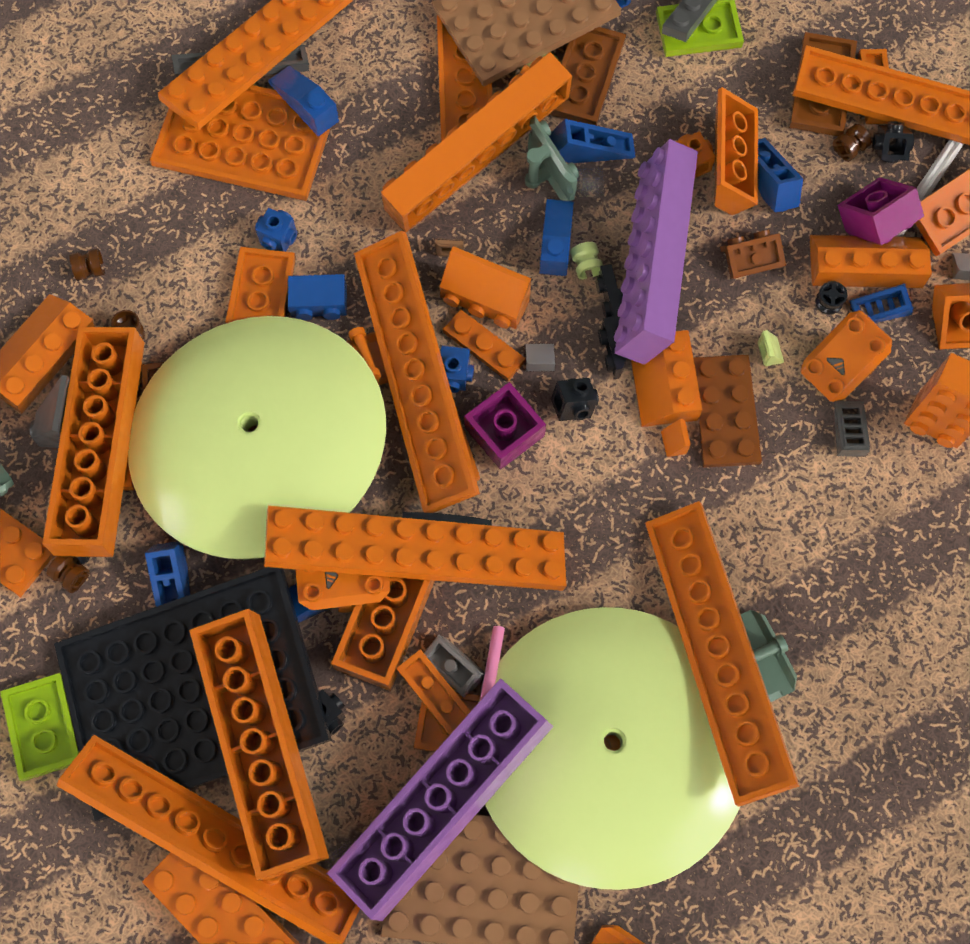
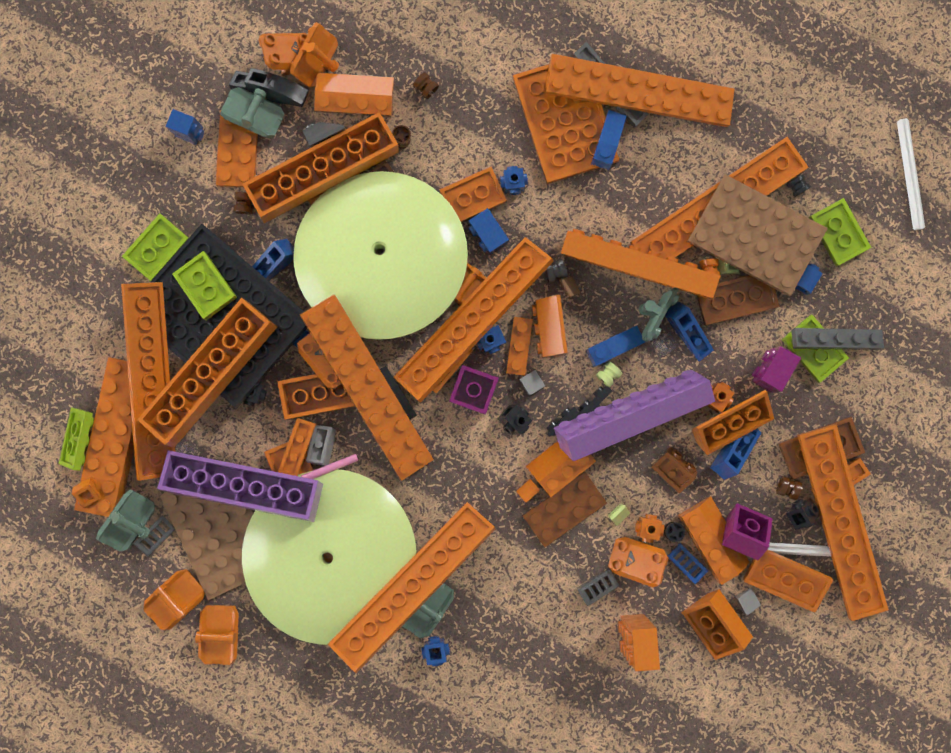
camera: 50 degrees right, 15 degrees up
(138, 683) = (204, 285): none -> lime plate
(421, 244) = (557, 270): none -> dark grey wheel
(698, 73) = (776, 369): none -> magenta brick
(810, 321) = (643, 524): none -> orange brick
(832, 672) = (431, 657): none -> blue brick

